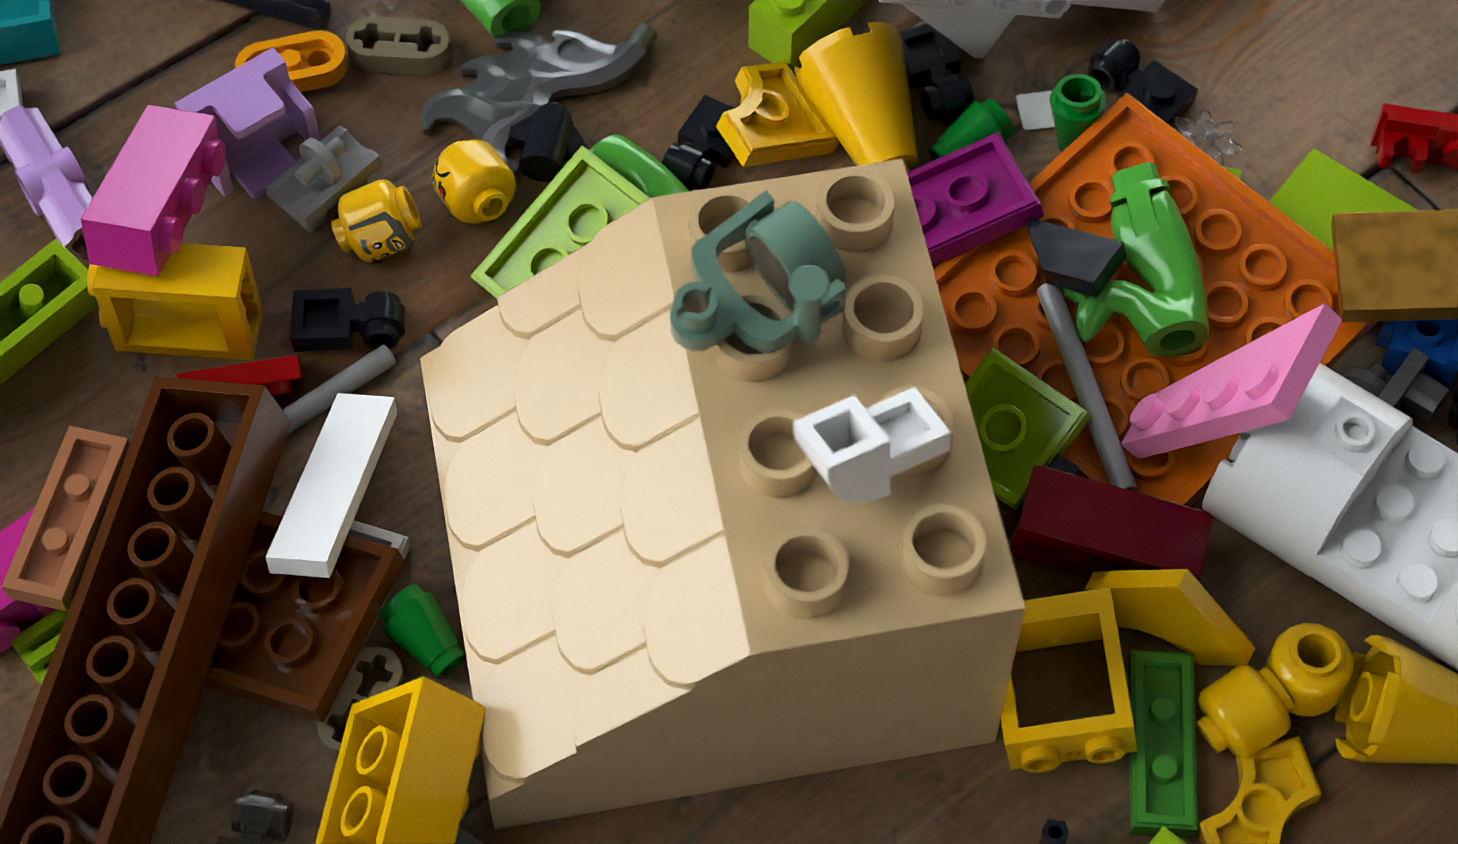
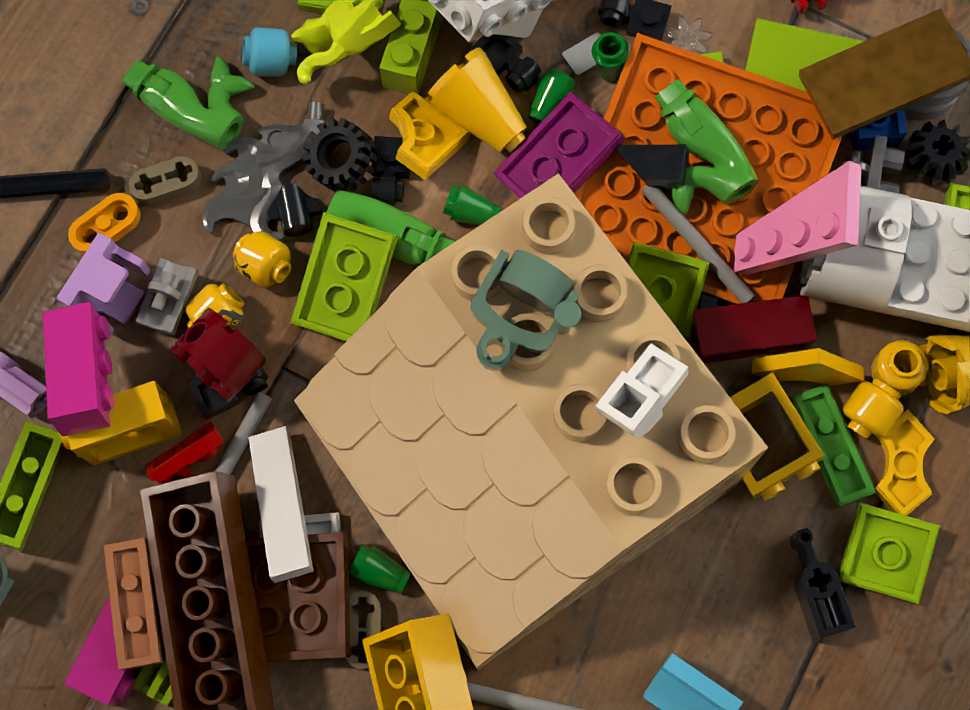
camera: 20 degrees left, 15 degrees up
(351, 255) = (218, 354): none -> dark red brick
(638, 74) = (324, 144): none -> black tyre

